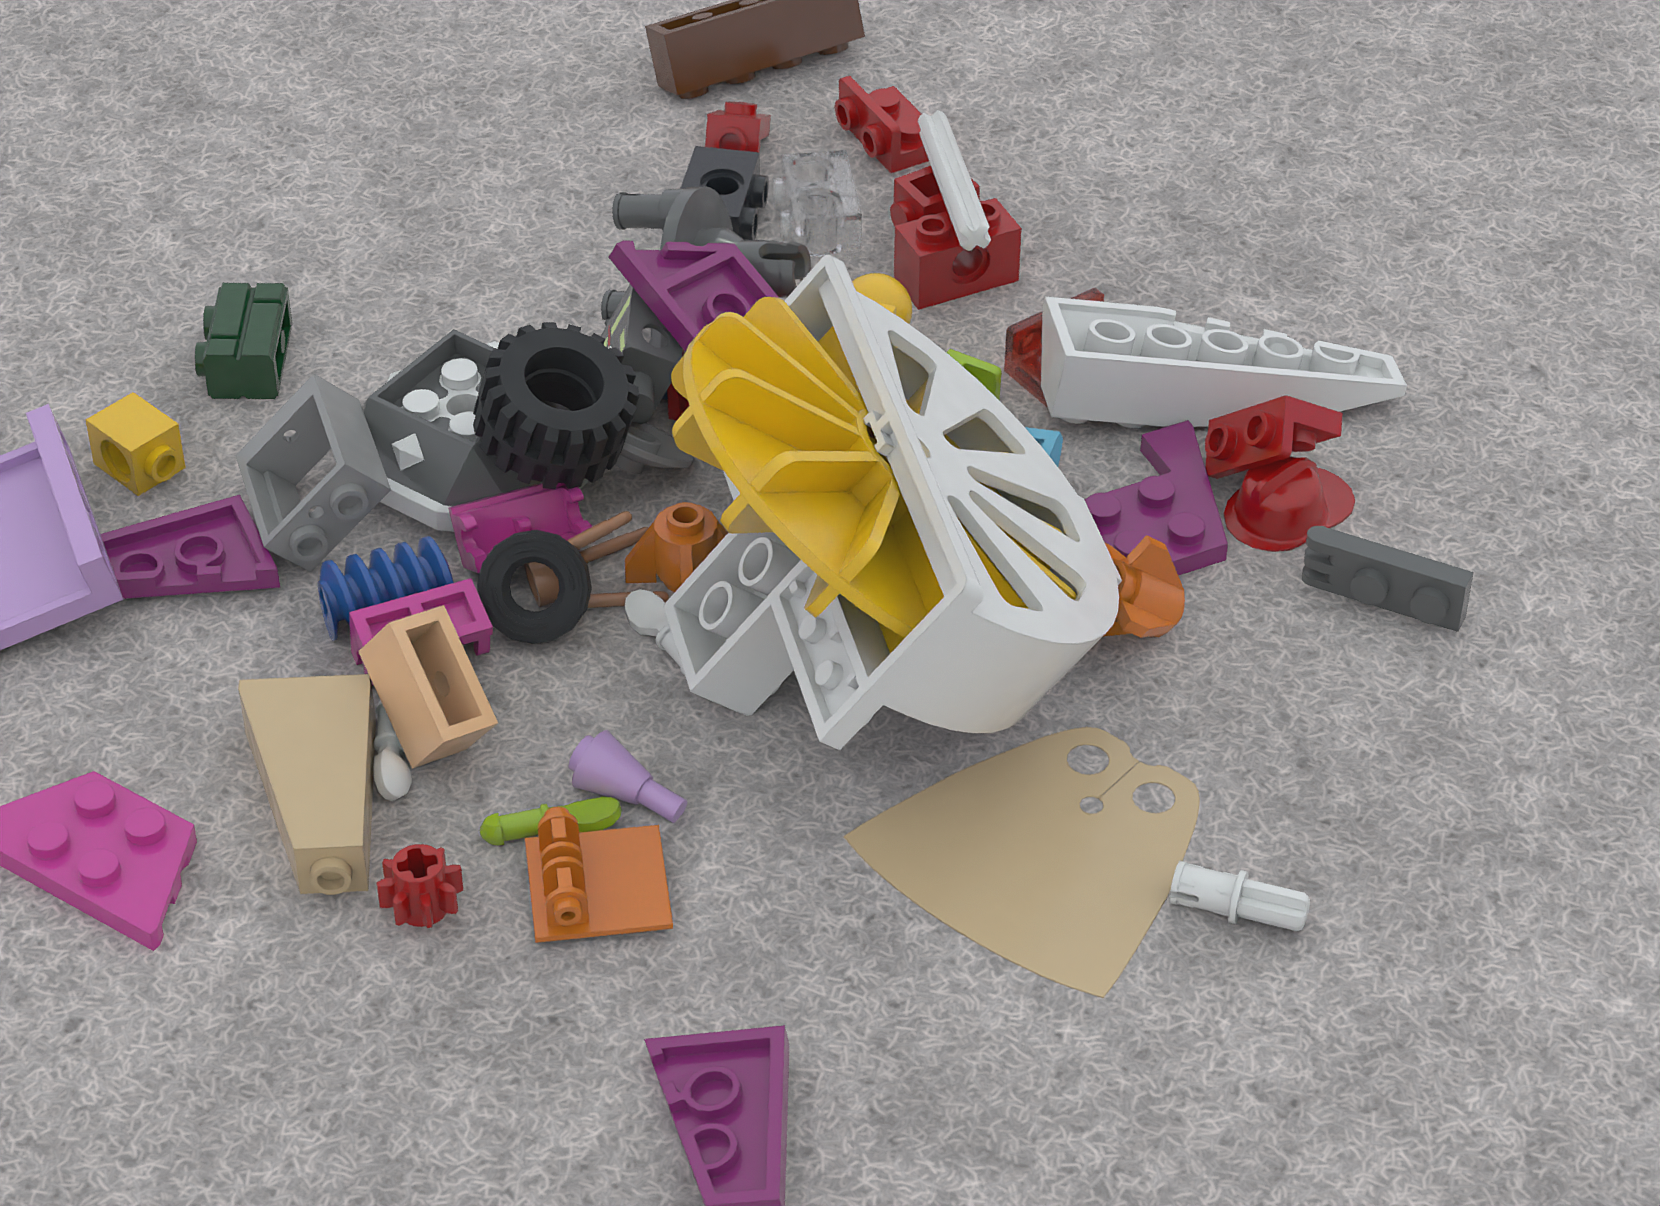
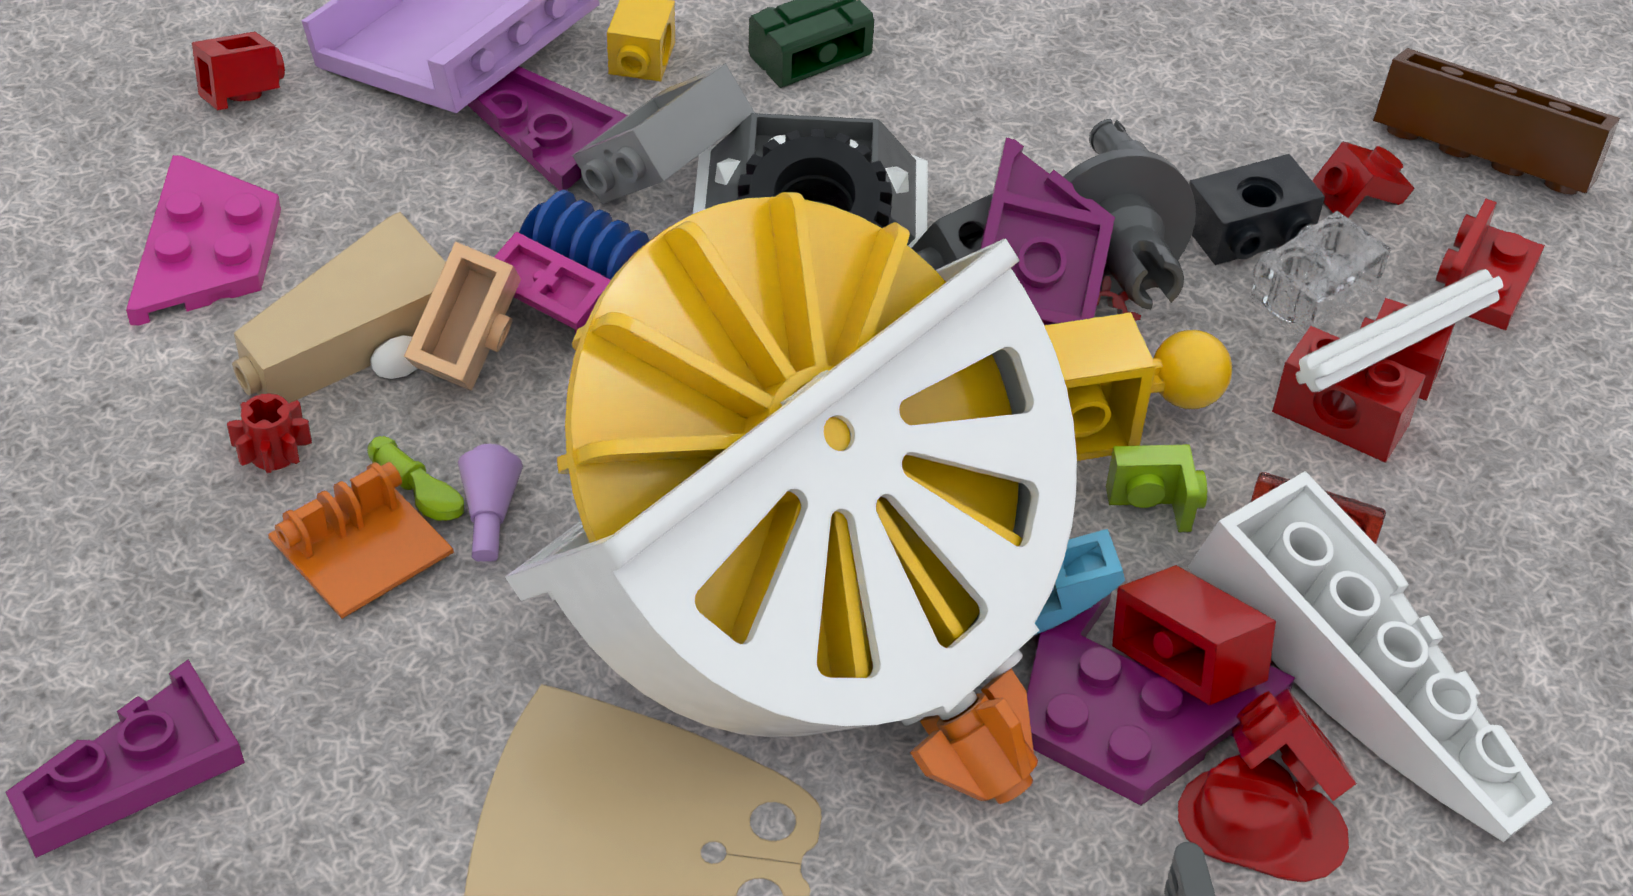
camera: 55 degrees right, 5 degrees up
(1125, 439) = (1193, 634): none -> red brick

